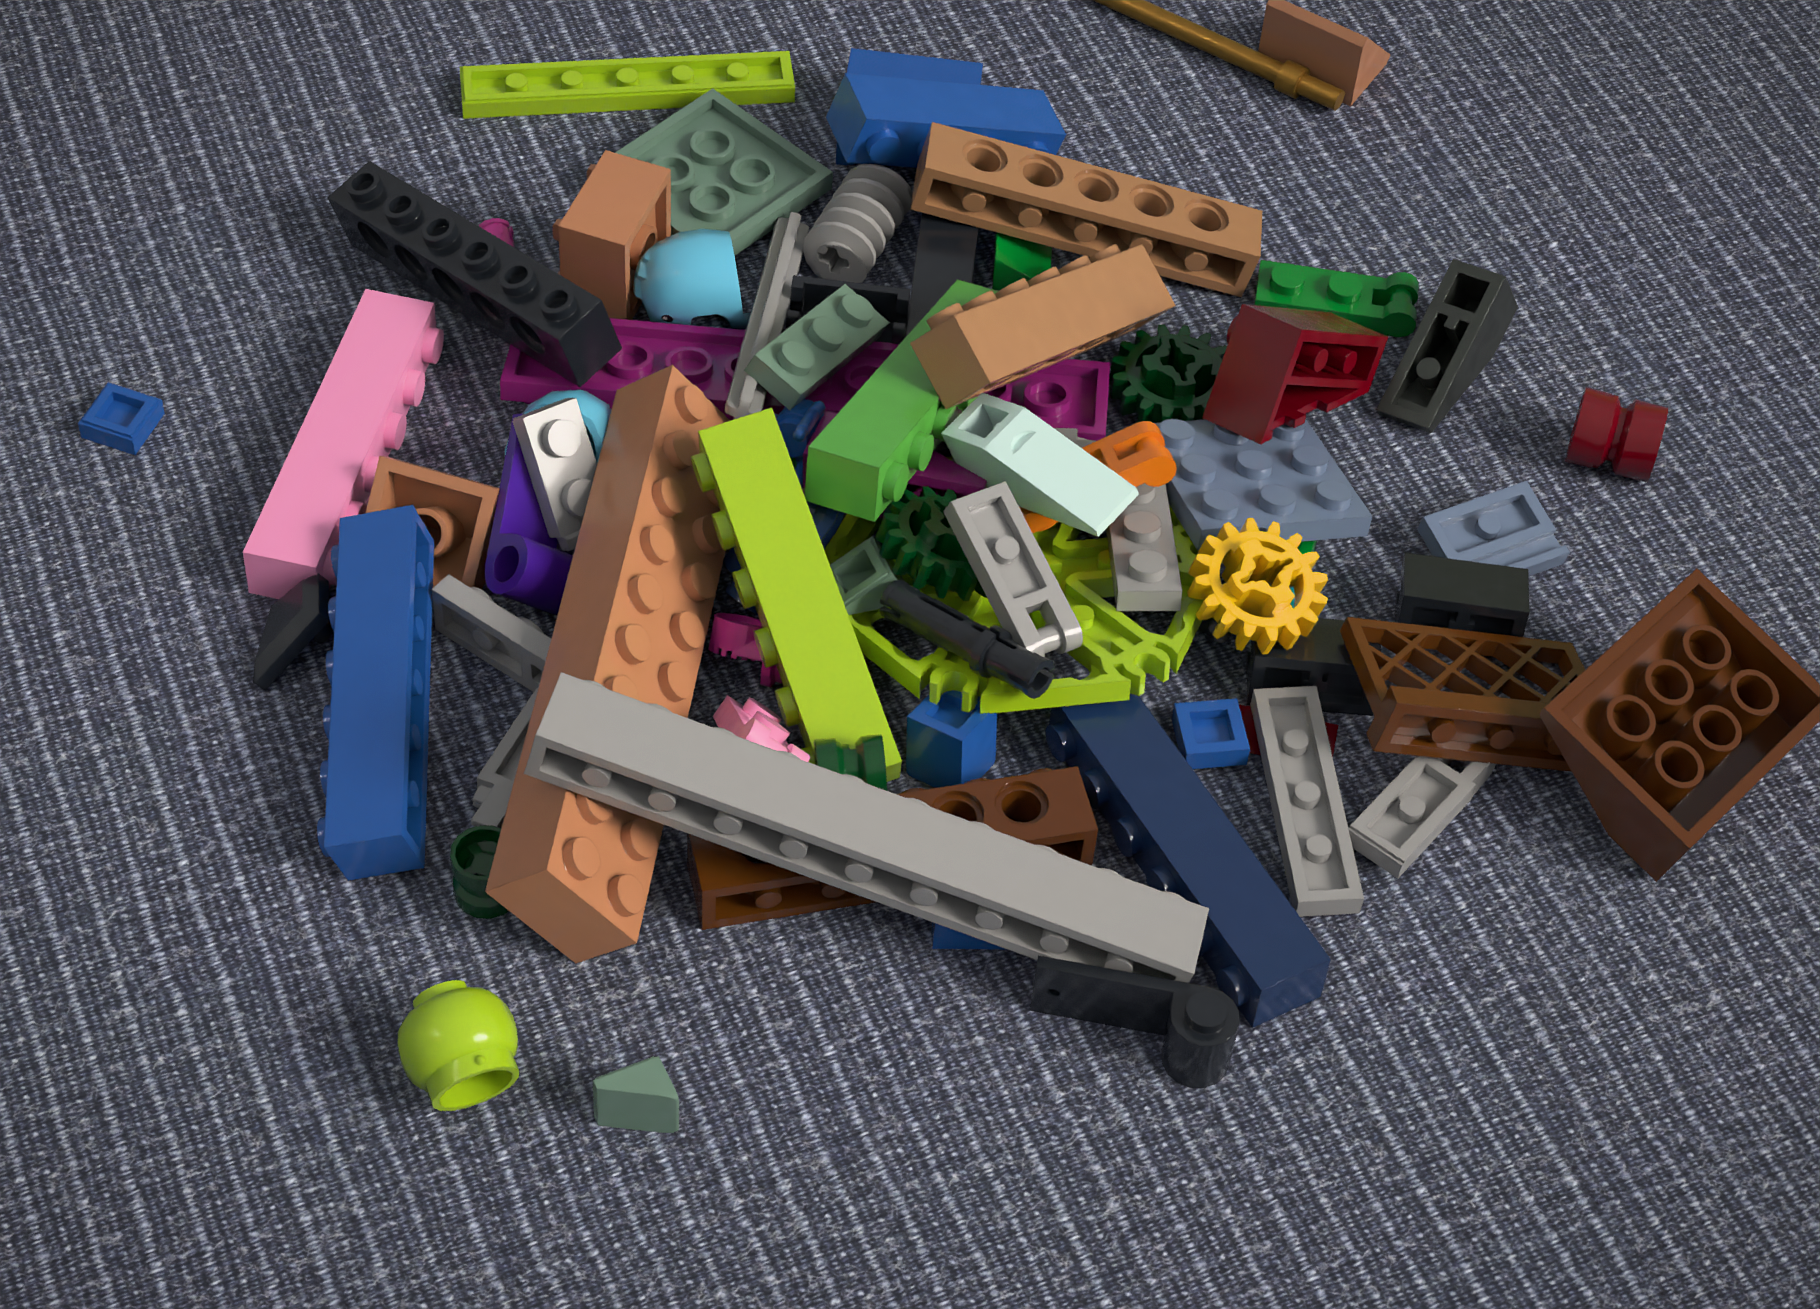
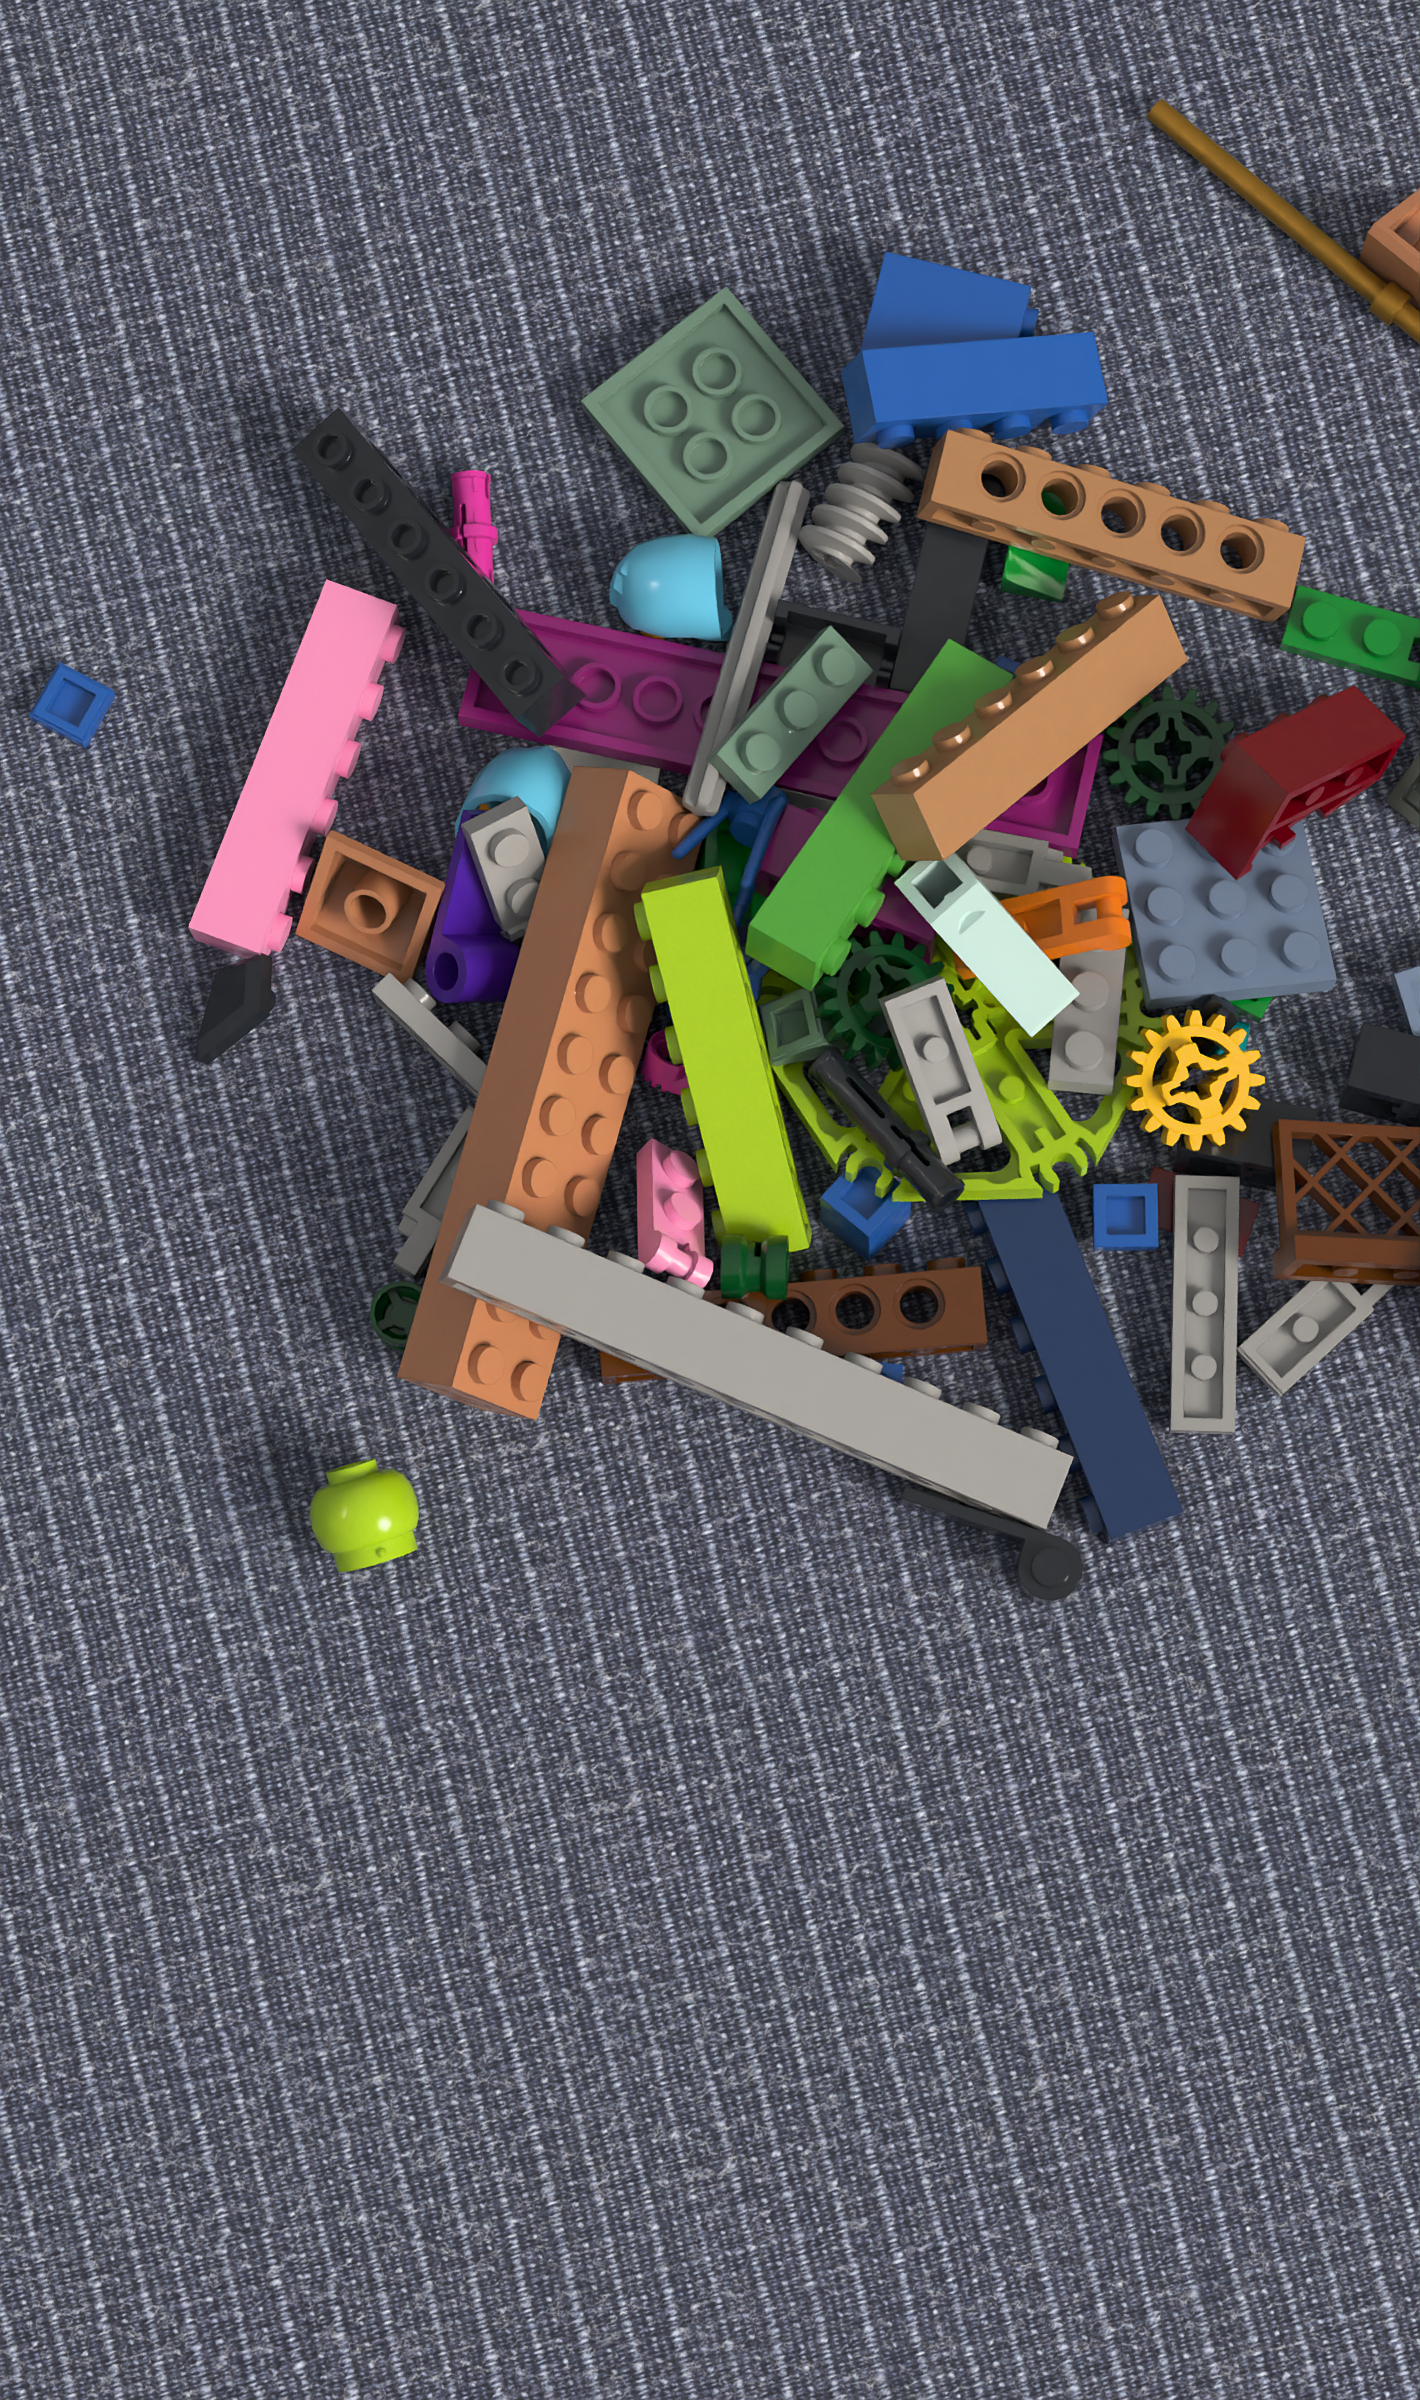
camera: 15 degrees right, 30 degrees up
(378, 695) = (314, 1104): blue brick -> none
(611, 226) = (593, 525): nougat container -> none
(624, 84) = (634, 253): lime tile -> none
(637, 1098) = (524, 1576): sand green slope -> none

